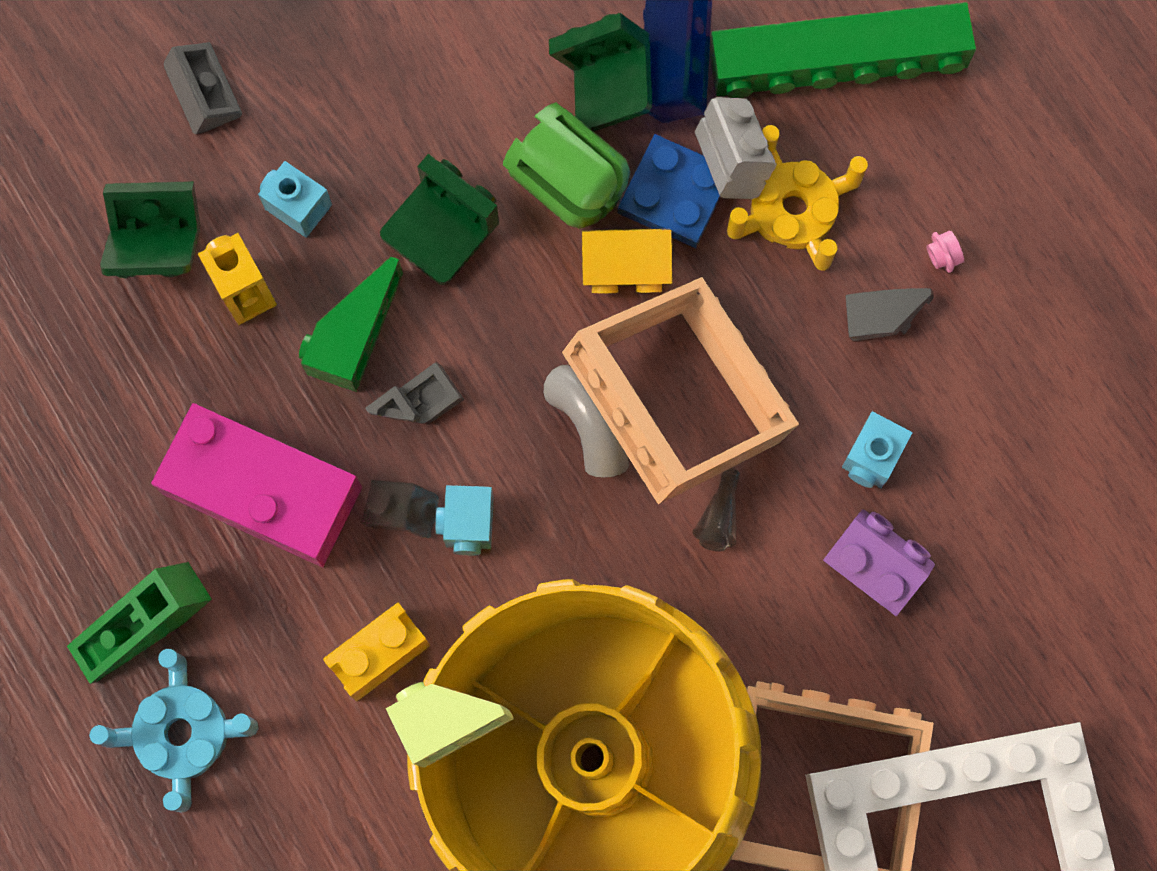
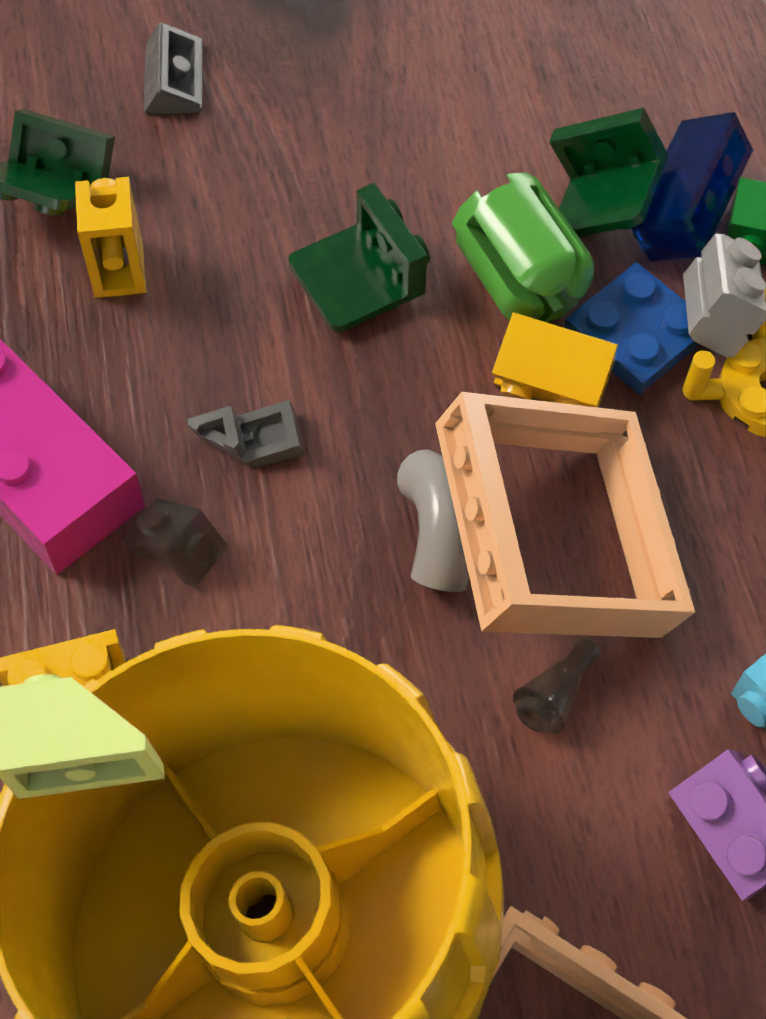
camera: 20 degrees right, 15 degrees down
(294, 198) = (214, 194): medium azure brick -> none
(348, 333) = (210, 335): green slope -> none
(466, 519) = (246, 576): medium azure brick -> none

